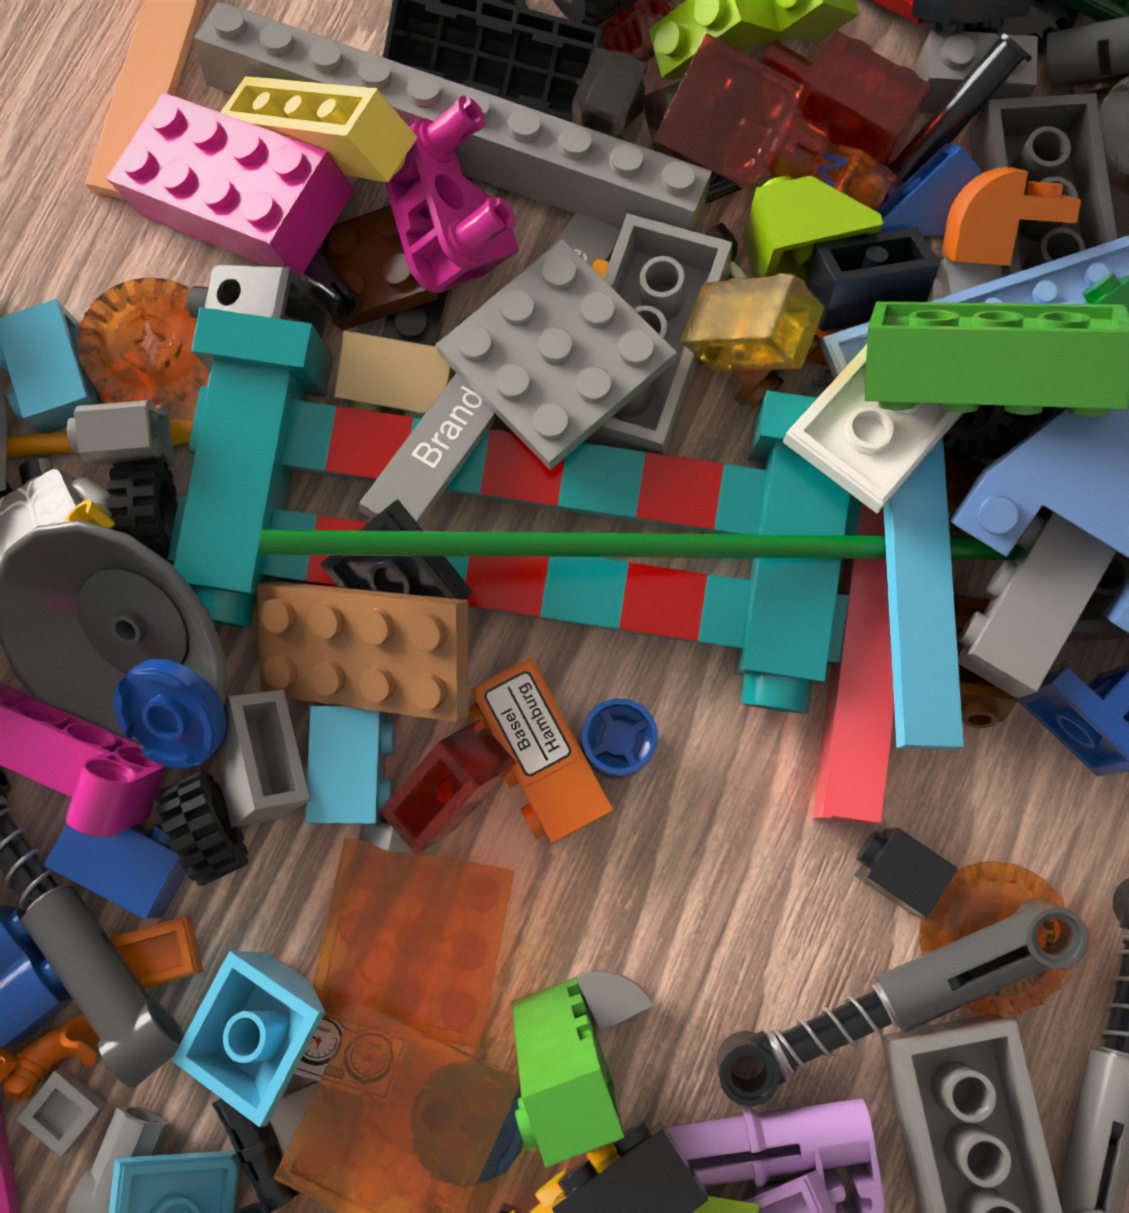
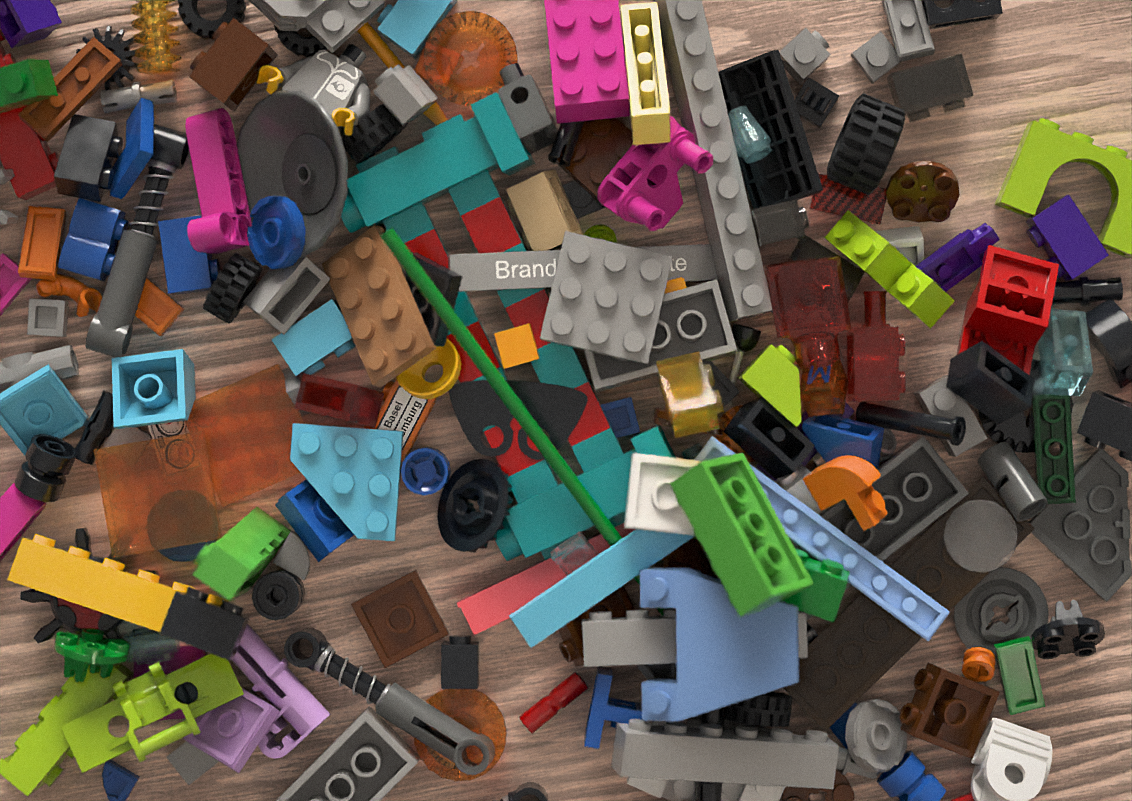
camera: 55 degrees right, 10 degrees up
(481, 67) = (749, 137): none -> clear light blue cone
(488, 608) = (413, 378): none -> yellow piece
(538, 505) = (517, 346): none -> light orange tile
(557, 835) = (353, 473): none -> medium azure plate
(581, 917) = (313, 520): none -> blue bracket
(591, 590) = (551, 406): none -> black piece
(651, 1056) = (278, 594): none -> black wheel
(709, 741) = (457, 520): none -> black gear
(718, 446) = (622, 417): none -> blue plate
(791, 911) = (400, 618): none -> reddish brown plate
(862, 613) = (573, 553): none -> clear plate
(1031, 790) = (550, 705): none -> red piece

